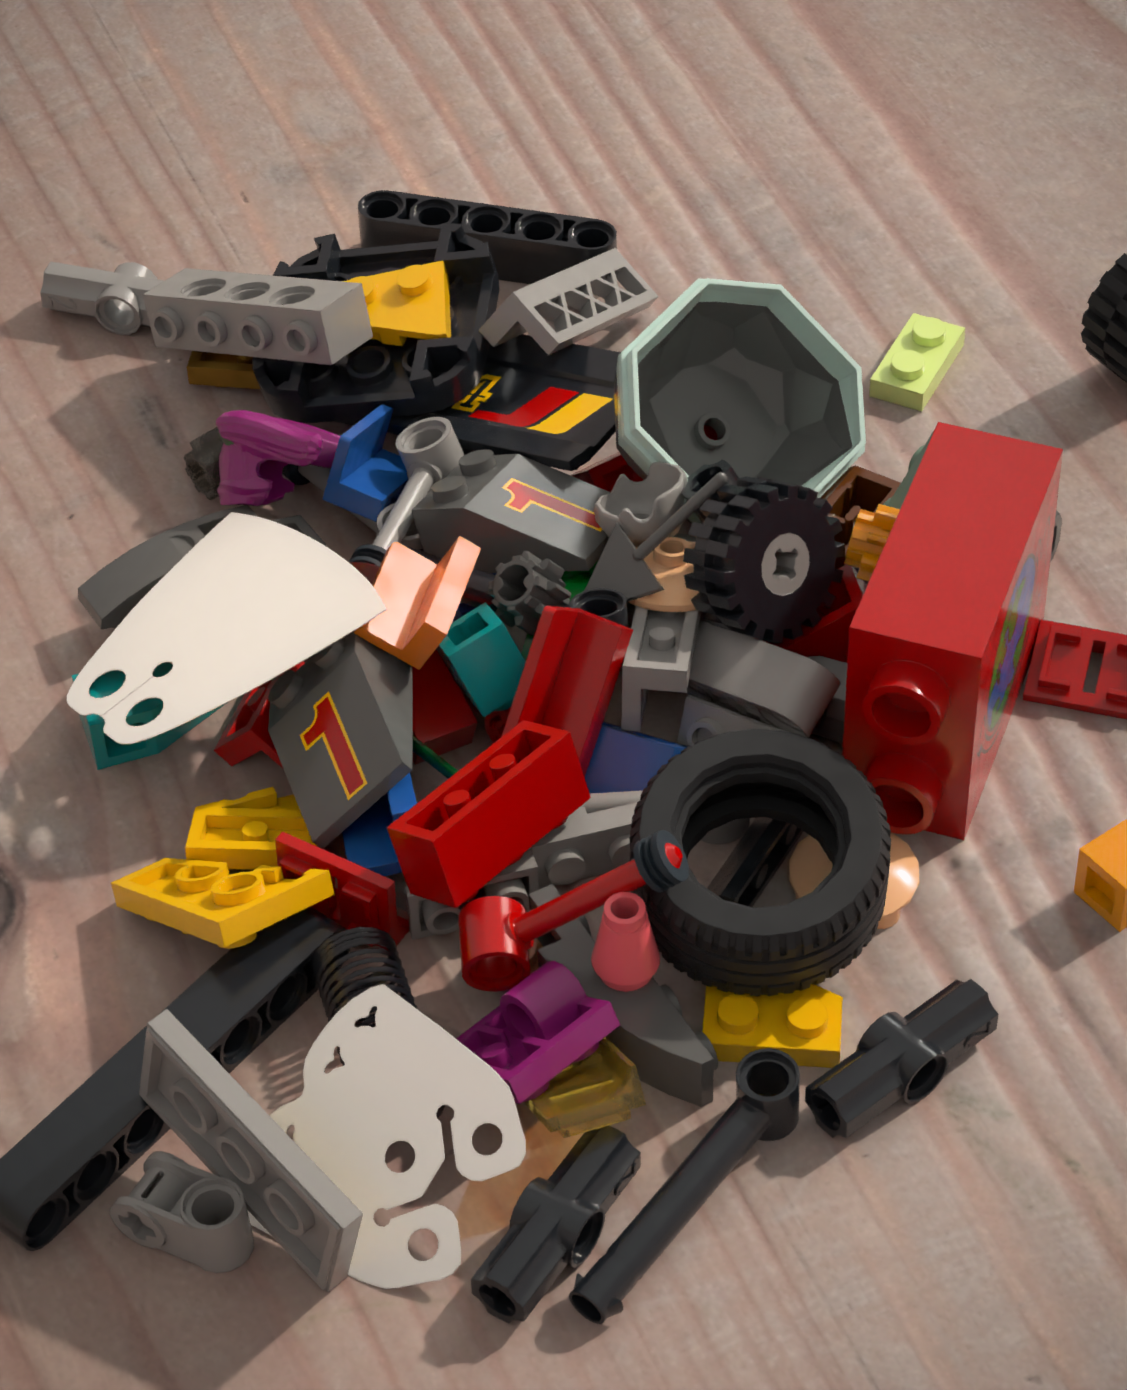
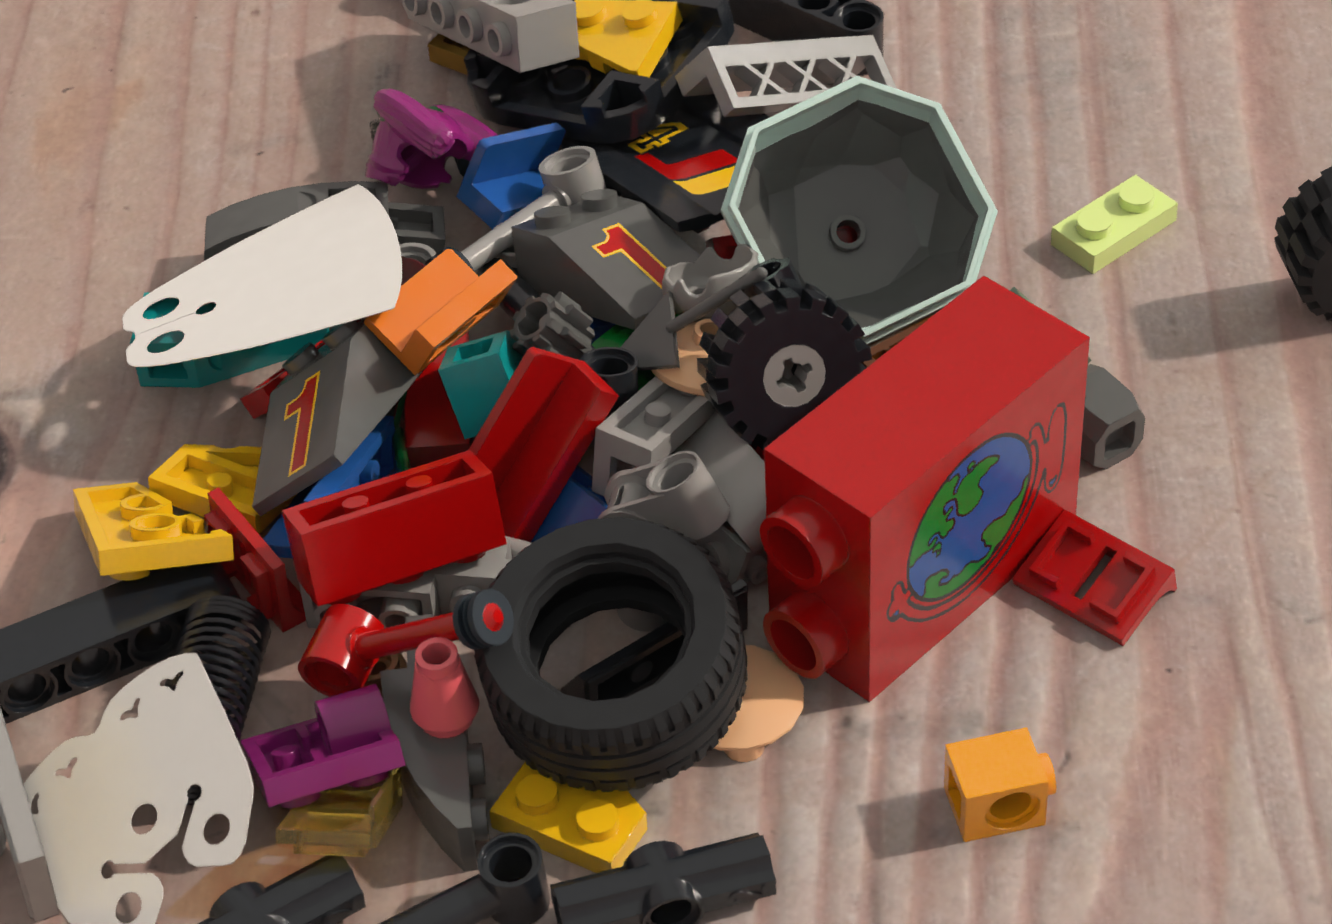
camera: 25 degrees right, 0 degrees up
(720, 702) = (669, 493): none -> light grey piece

